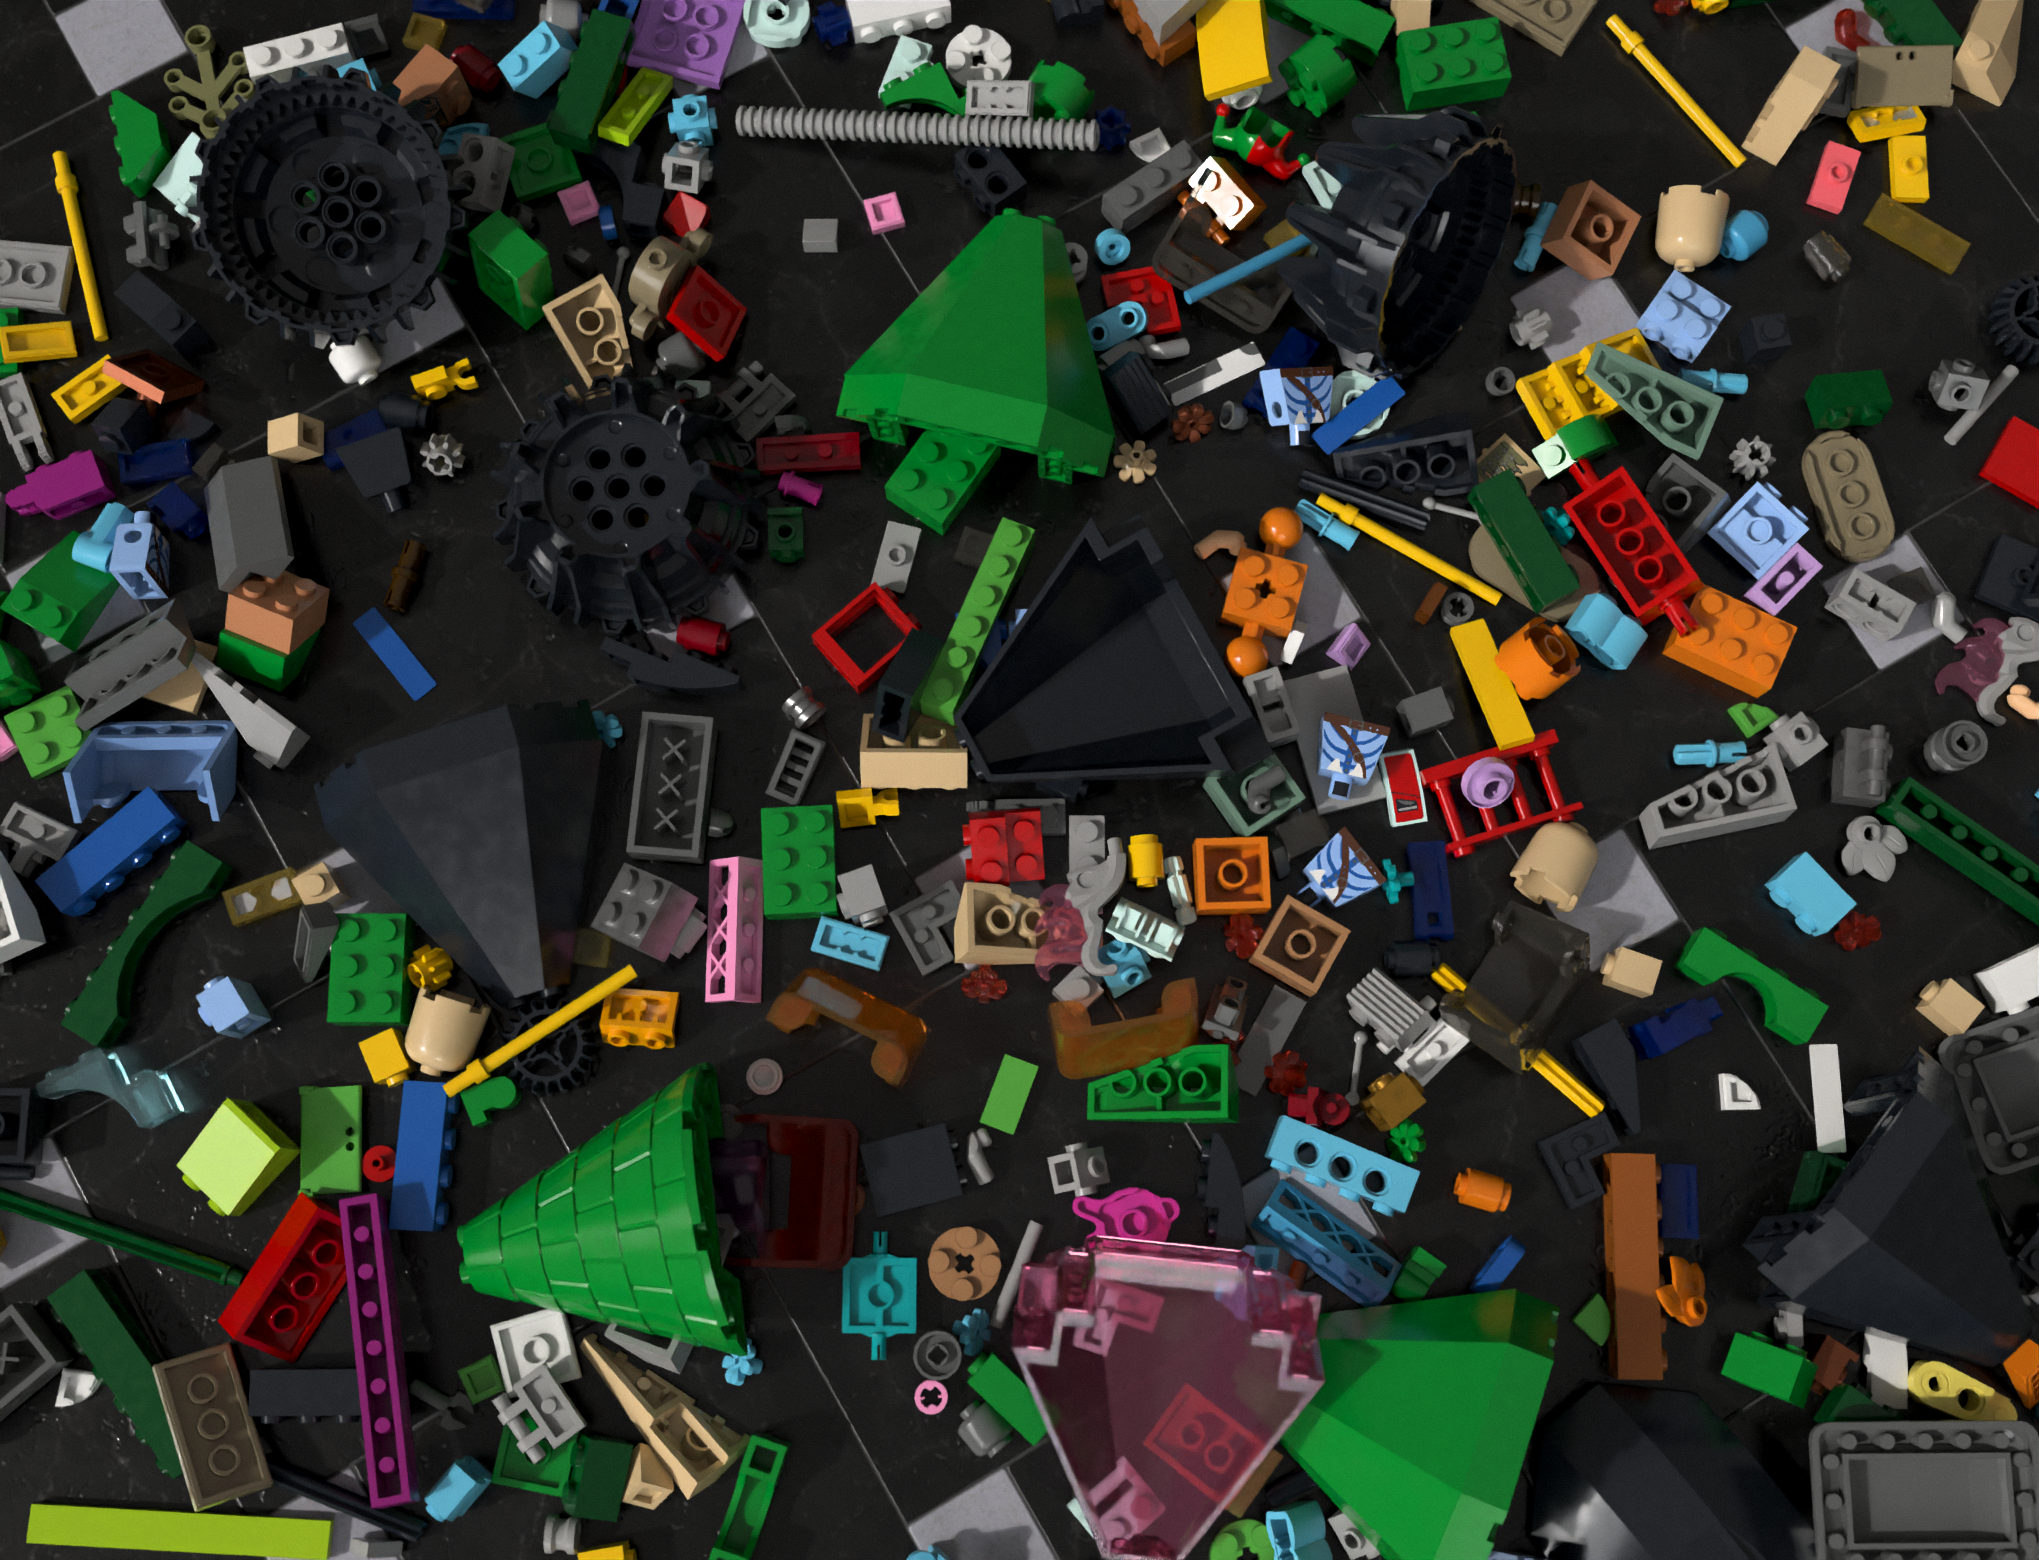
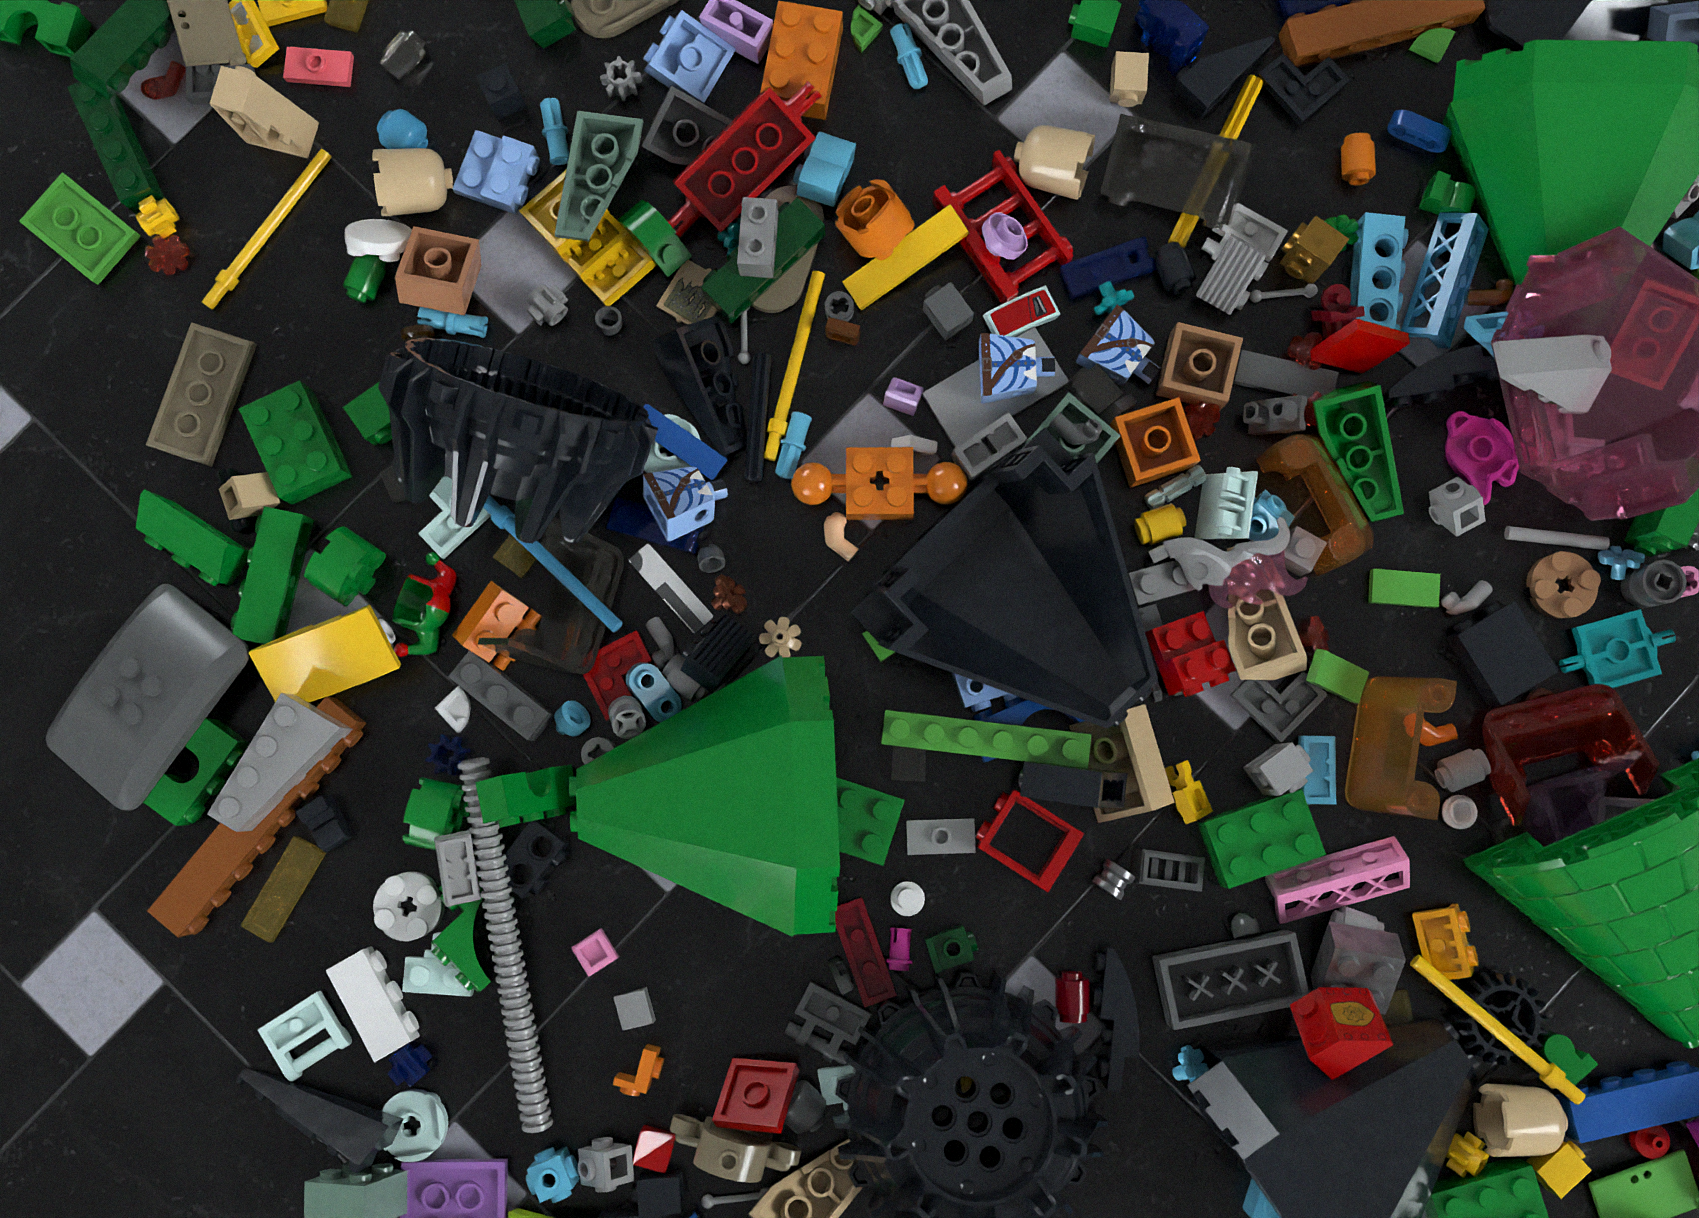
camera: 100 degrees left, 5 degrees up
(594, 859) = (1340, 1028): none -> red slope
(760, 228) = (649, 1068): none -> orange bracket
(806, 1090) = (1462, 769): none -> light grey brick
(846, 509) = (907, 898): none -> white plate
(851, 1070) = (1435, 735): none -> orange arm
(938, 989) = (1337, 676): none -> bright green tile
(1051, 156) = (525, 796): none -> green arch
(1090, 292) = (626, 726): none -> light grey wheel
(1190, 1301) = (1557, 368): none -> light grey wedge
(1275, 1113) = (1359, 346): none -> red tile
(1544, 529) = (757, 237): none -> light grey brick
(1602, 166) = (364, 277): none -> green brick
(1639, 182) = (377, 238): none -> white tile

